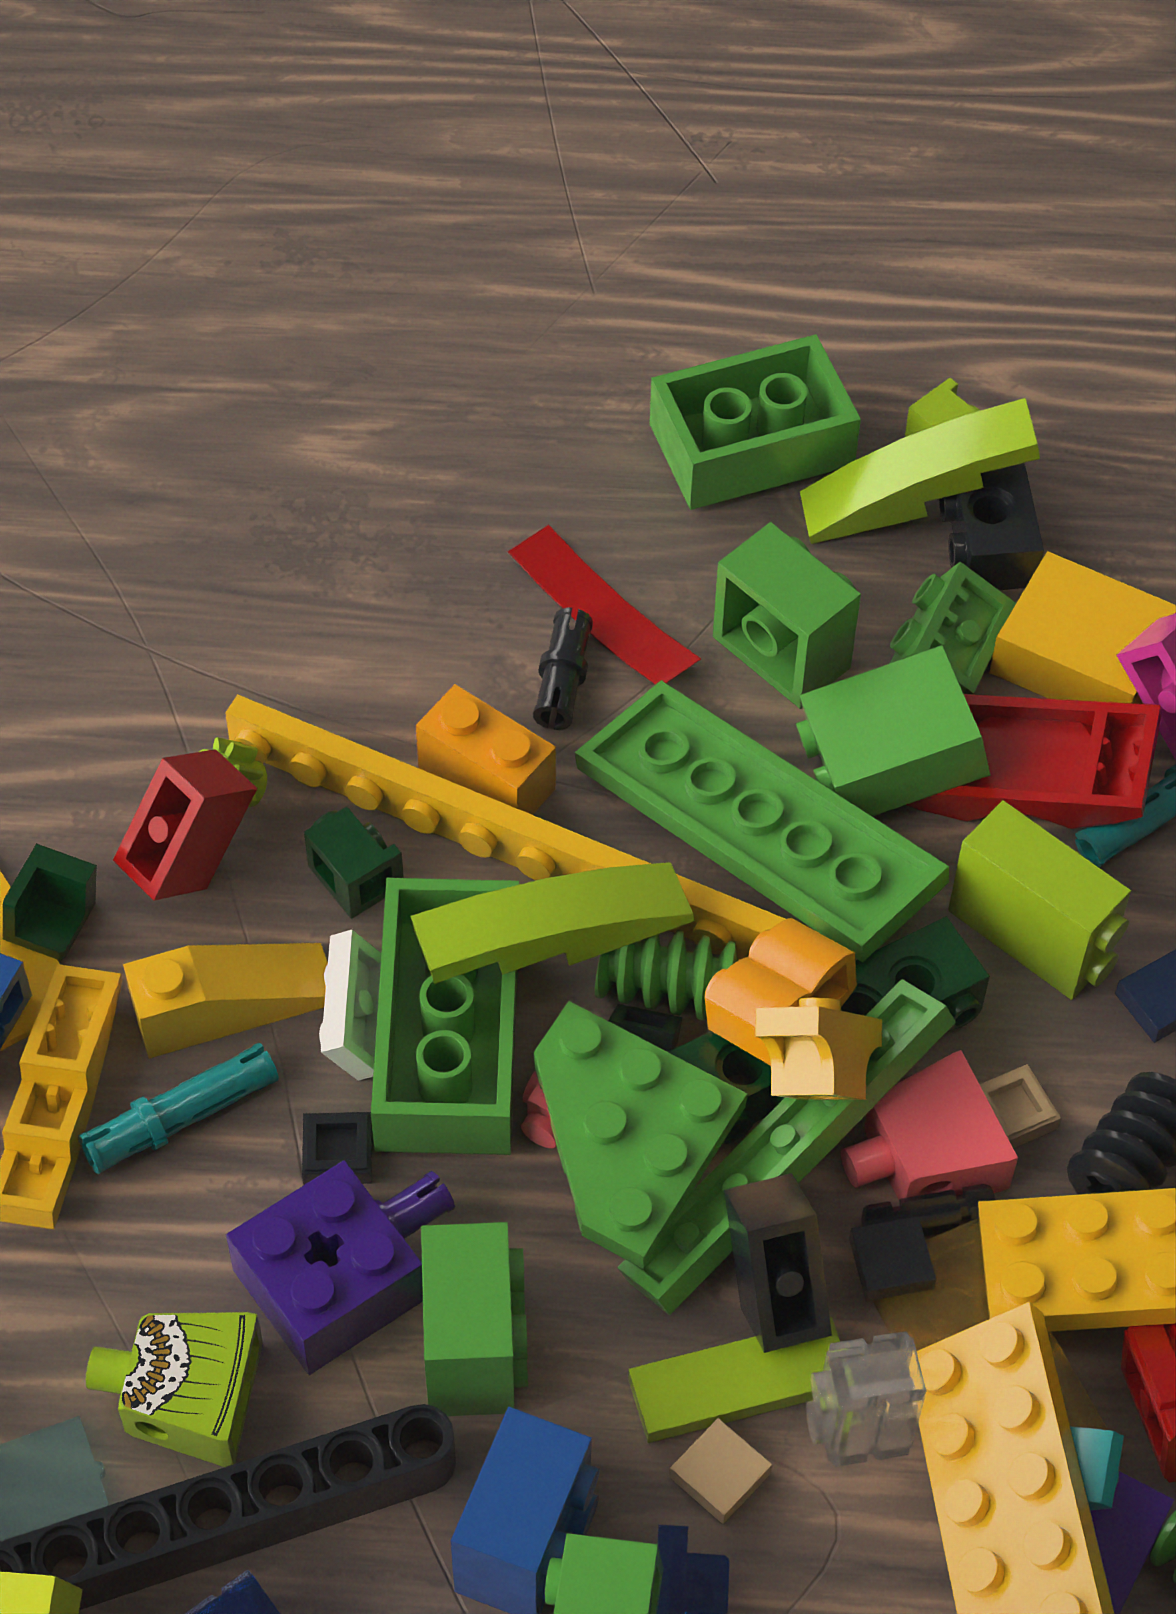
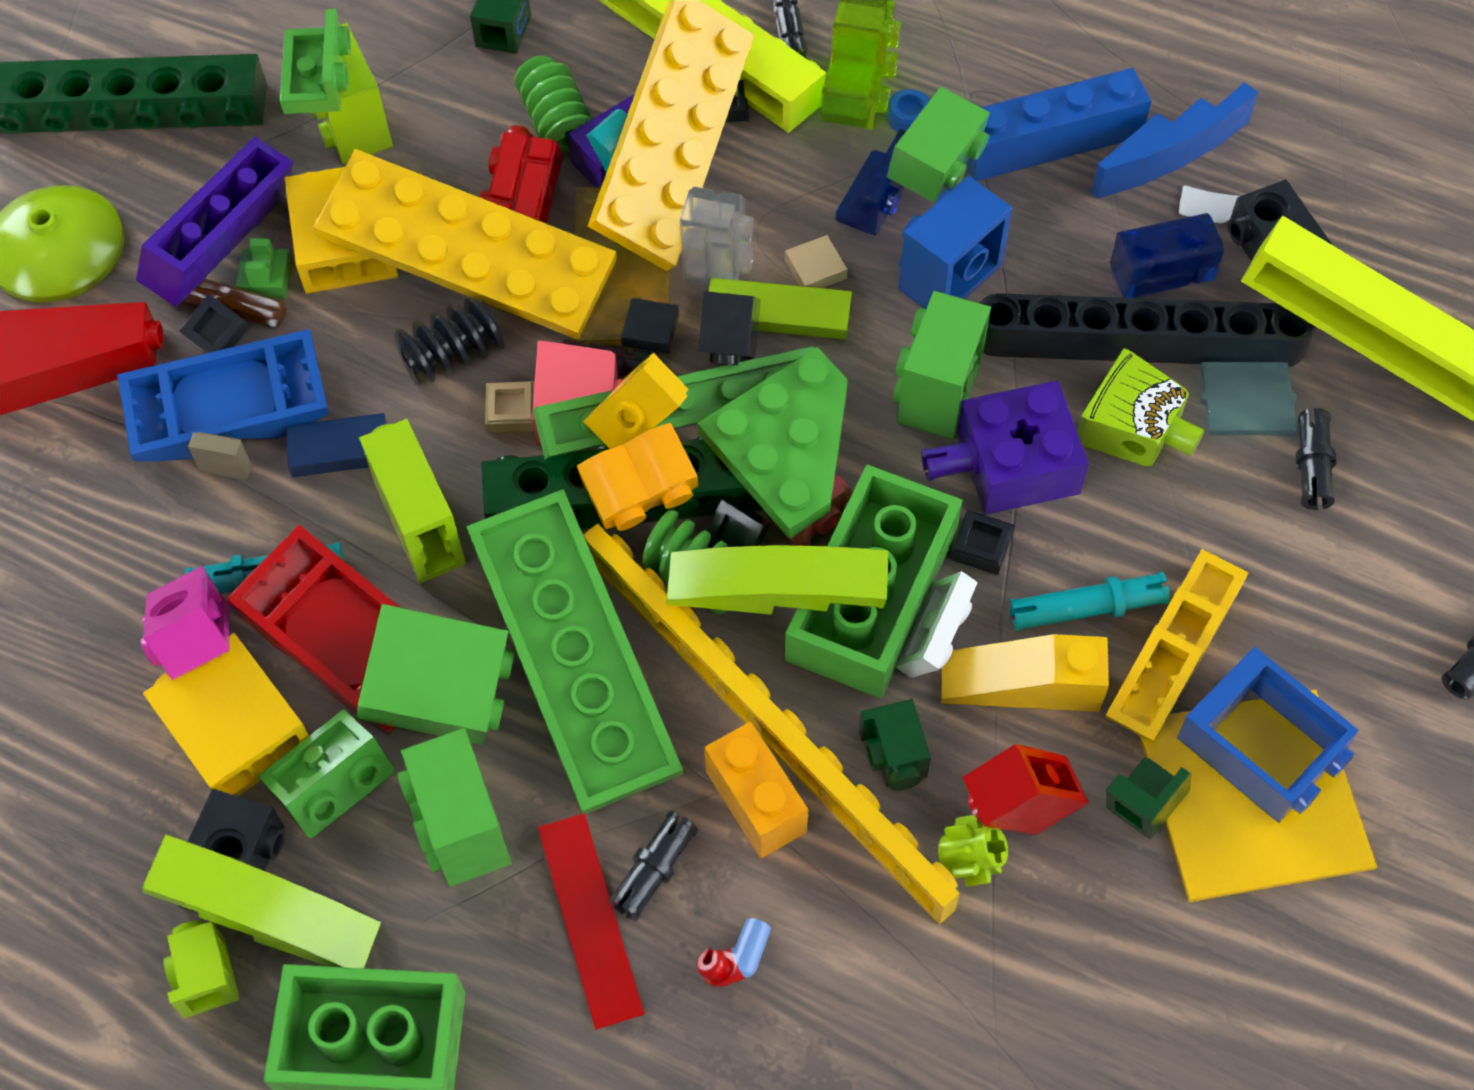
camera: 155 degrees left, 5 degrees up
(438, 616) = (737, 963): none -> arm

